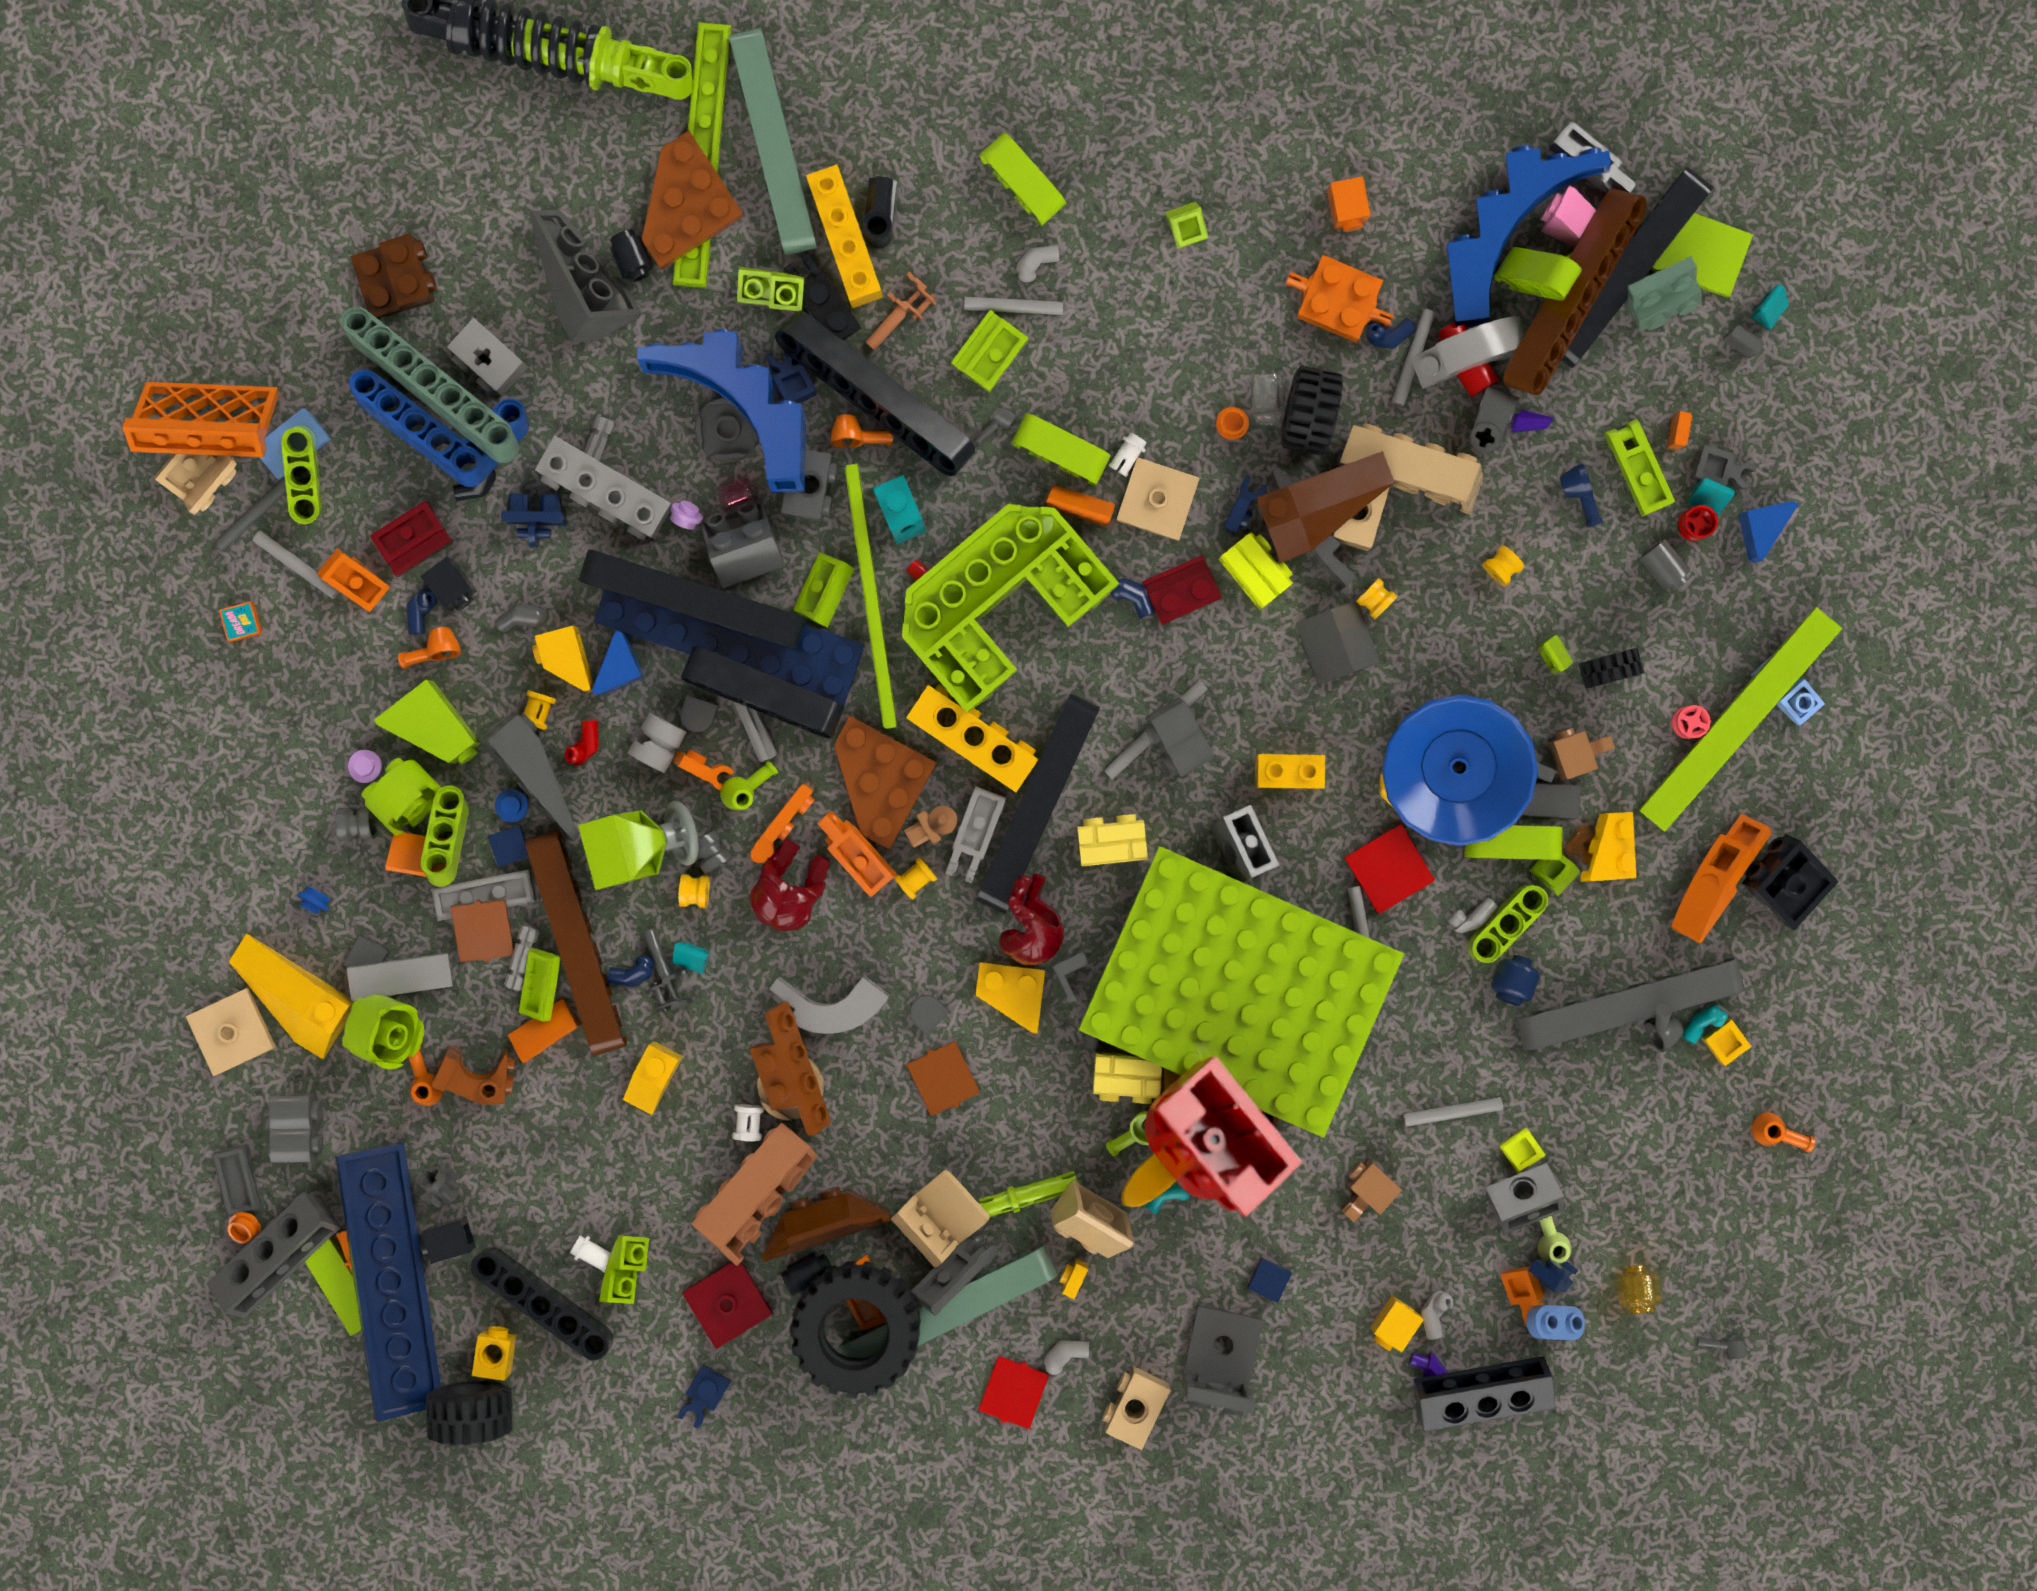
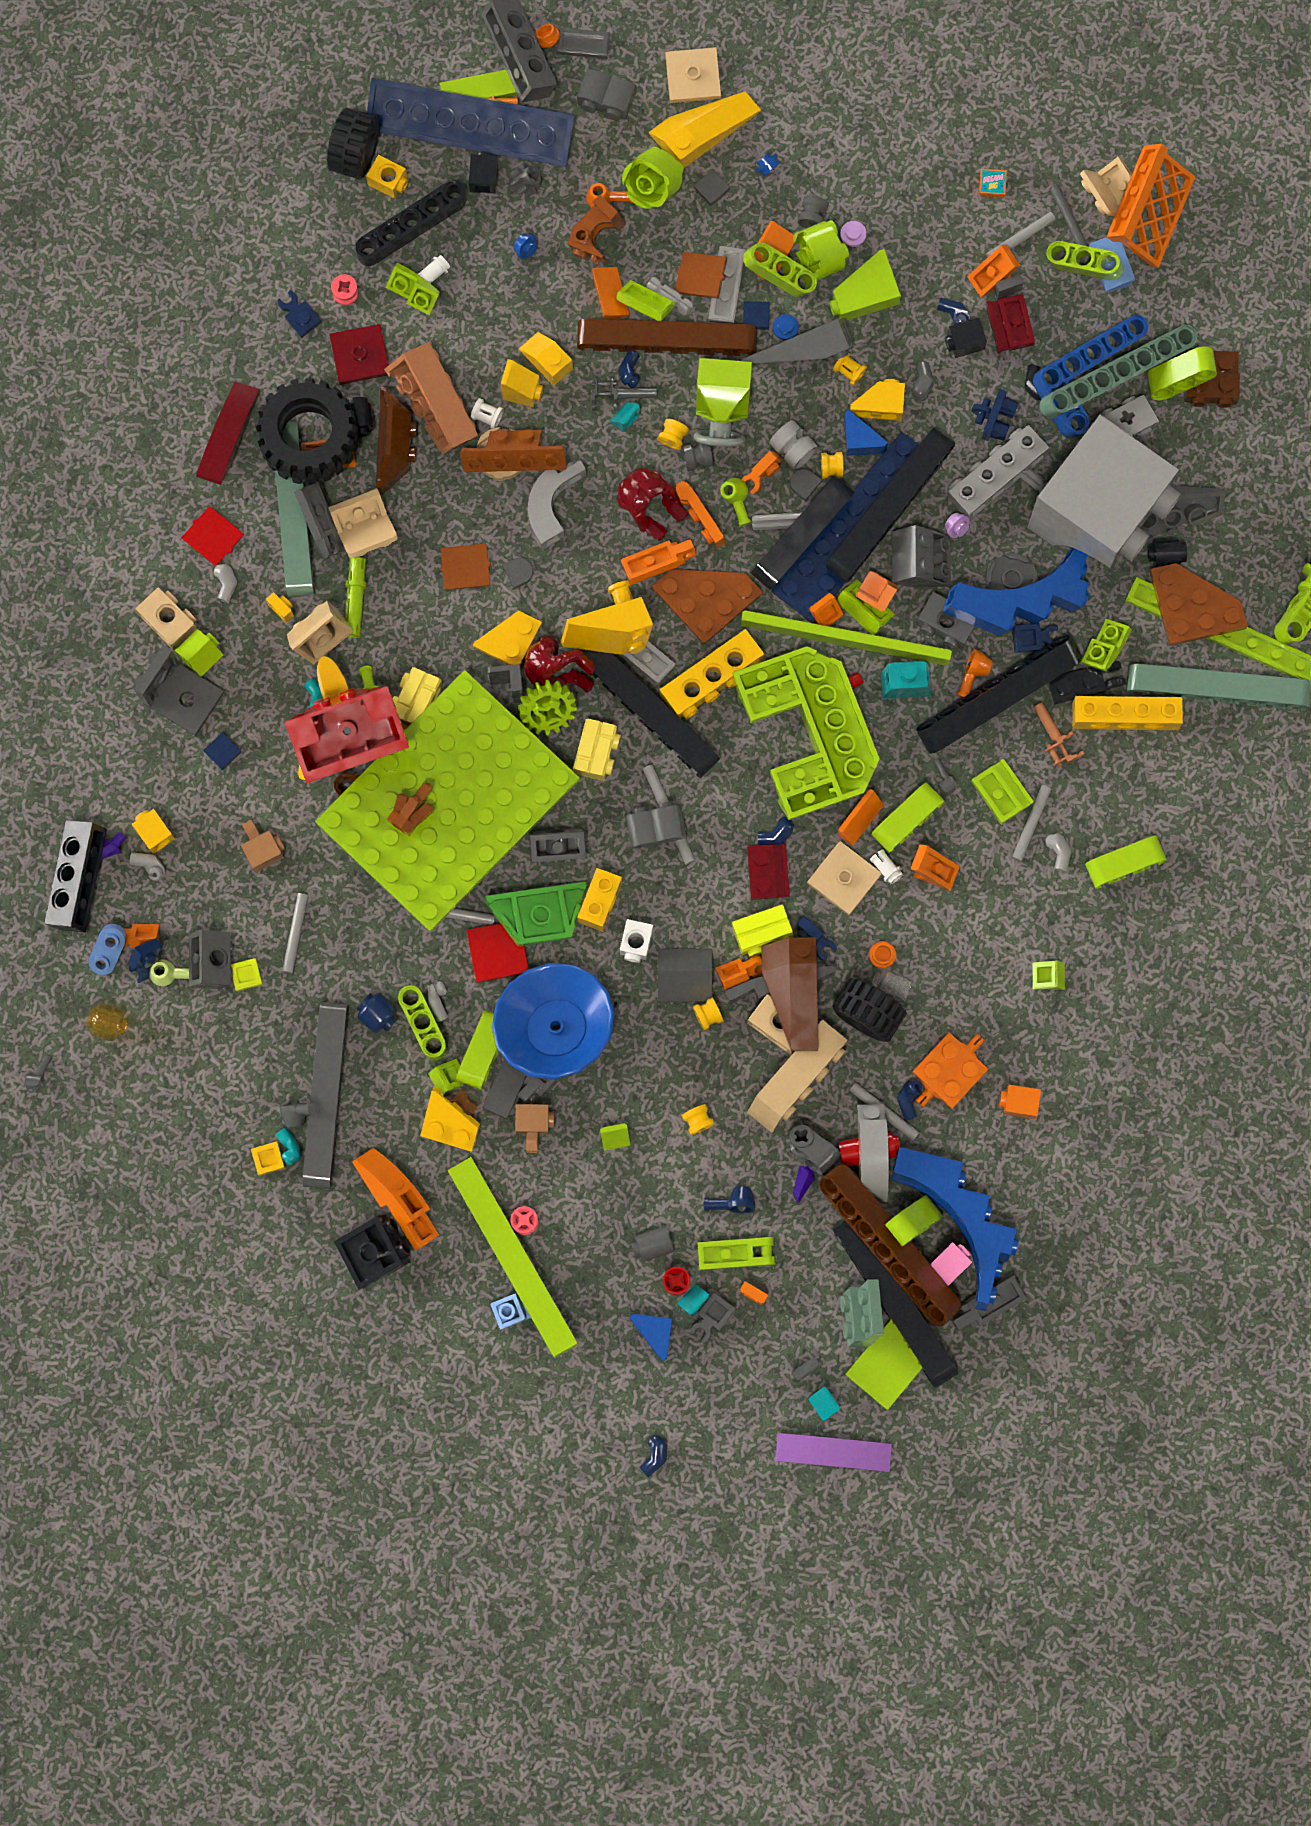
camera: 110 degrees right, 10 degrees down
(366, 556) = (1008, 286): none -> dark grey tile
(400, 976) = (688, 205): light grey tile -> none
(404, 308) = (1181, 373): none -> lime beam
(439, 641) = (925, 316): orange bar -> none
(521, 1154) = (525, 245): none -> blue plate
(586, 746) = (809, 394): red arm -> none
(597, 339) = (1105, 495): none -> light grey brick
(659, 1345) = (347, 295): none -> coral wheel
(665, 688) = (831, 465): none -> yellow wheel
(700, 1094) = (520, 385): none -> yellow slope
(735, 492) = (961, 567): clear pink slope -> none
(804, 579) = (876, 590): none -> orange panel
(847, 632) = (826, 610): none -> orange tile
(880, 210) = (1140, 747): black piece -> none
(883, 1423) = (227, 433): none -> dark red slope
(930, 827) = (660, 618): medium nougat hips -> none
(969, 870) = (611, 629): none -> yellow slope
(1086, 918) = (547, 707): none -> lime gear
(1110, 396) = (934, 868): none -> orange slope
(1164, 1352) = (199, 652): none -> lime brick
(1286, 1033) = (412, 811): none -> dark orange rock
(1307, 716) = (634, 929): none -> white brick
(1317, 583) = (738, 972): none -> orange plate
(1330, 835) = (538, 913): none -> bright green wing
(1611, 668) = (588, 1170): black tyre -> none
(1765, 1120) = (182, 1176): orange bar -> none
(1826, 277) = (833, 1452): none -> medium lavender slope
(1899, 474) = (658, 1455): none -> dark blue arm

